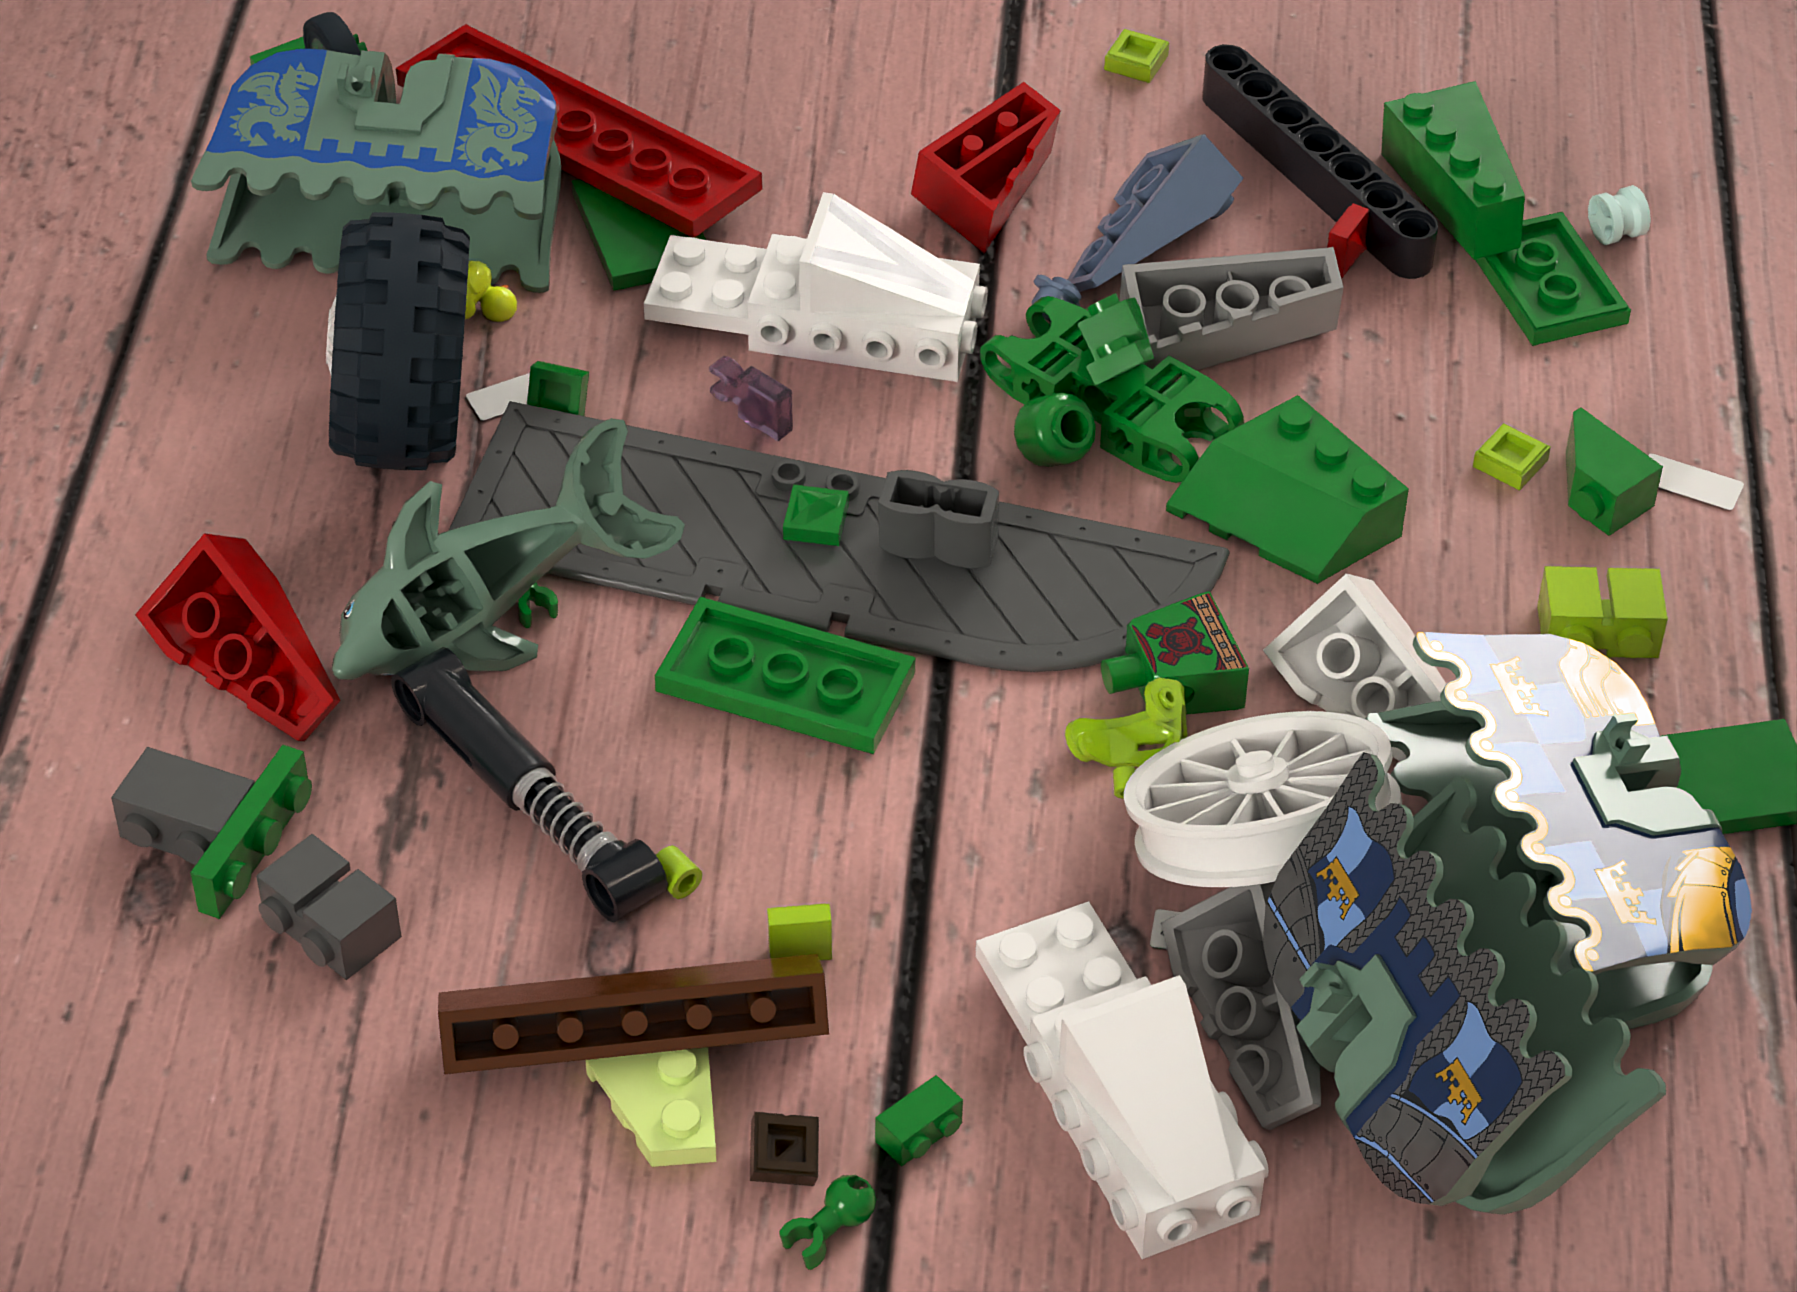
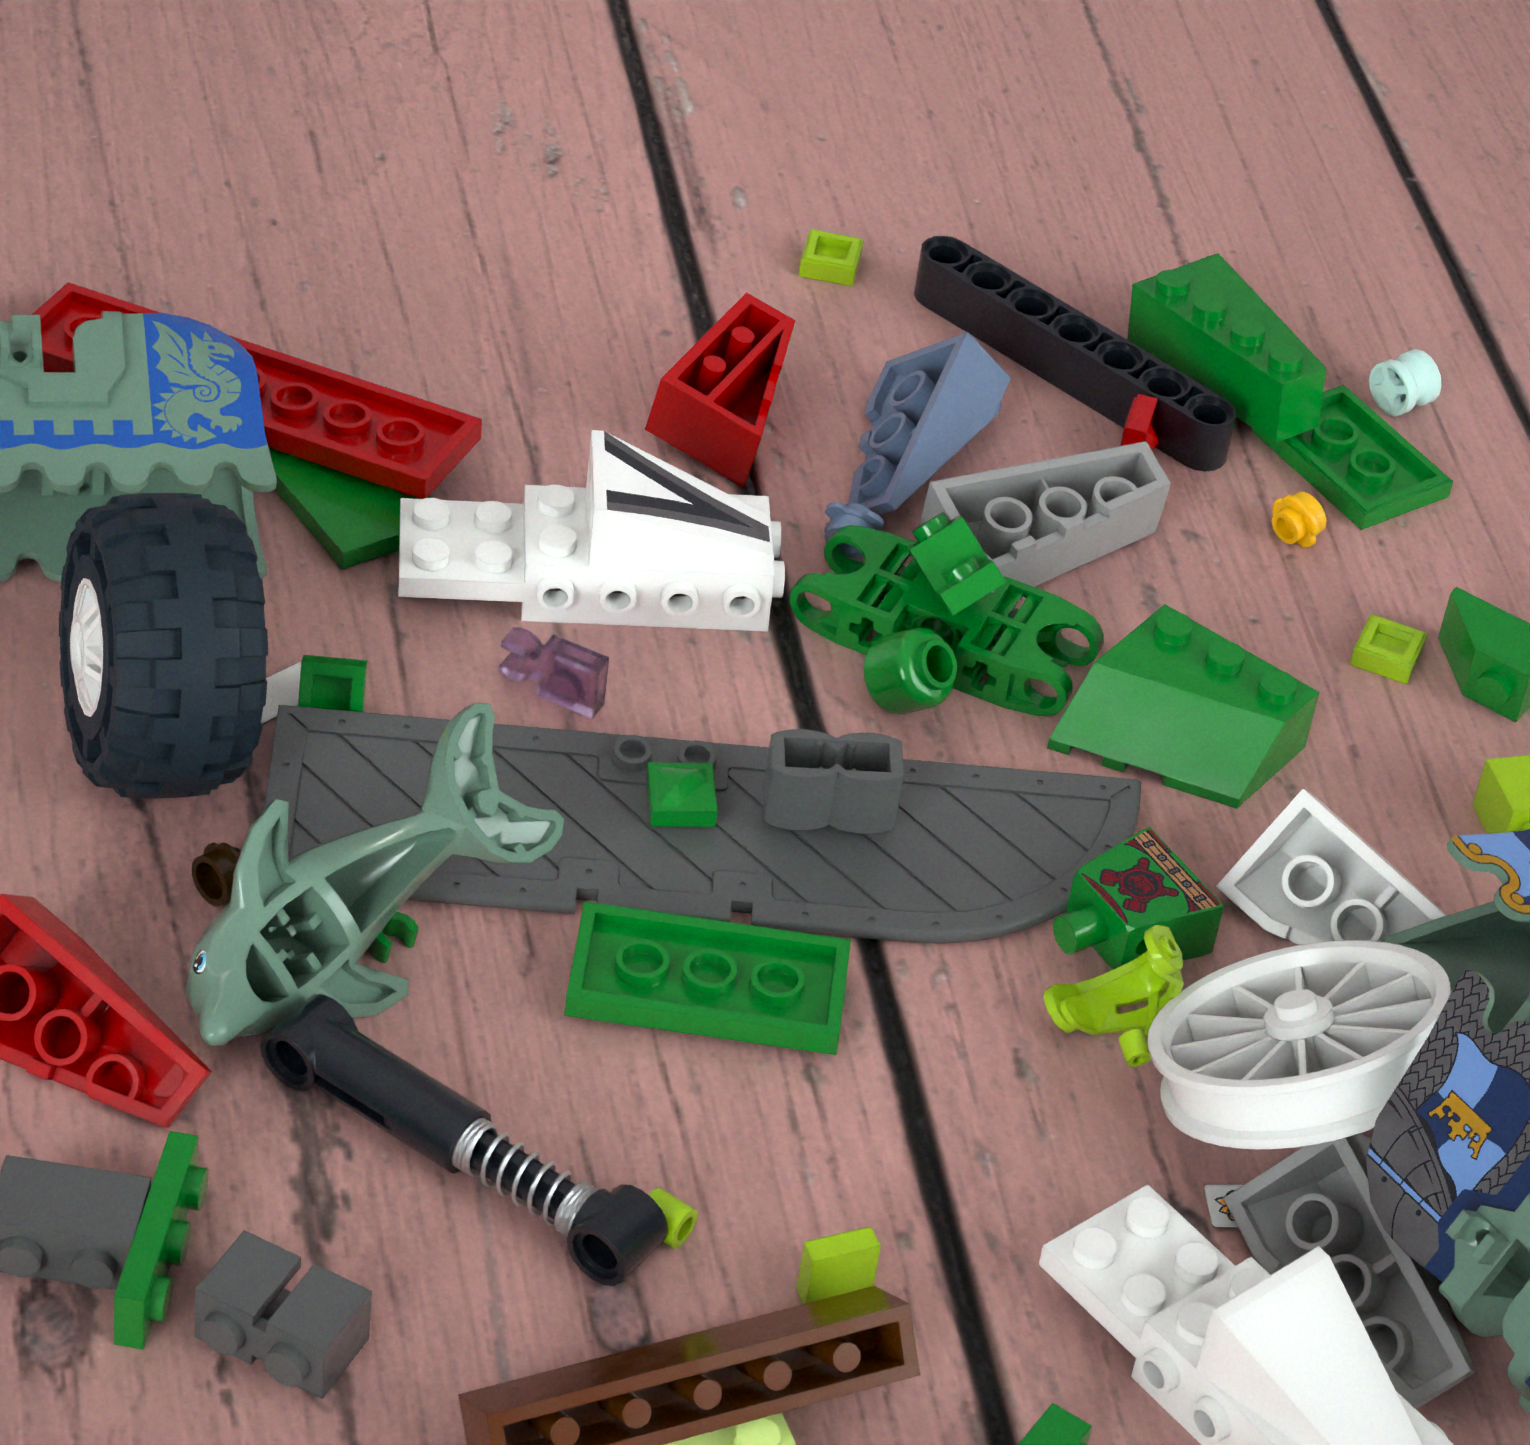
camera: 20 degrees left, 5 degrees down
(1469, 330) = (1298, 519): none -> yellow plate

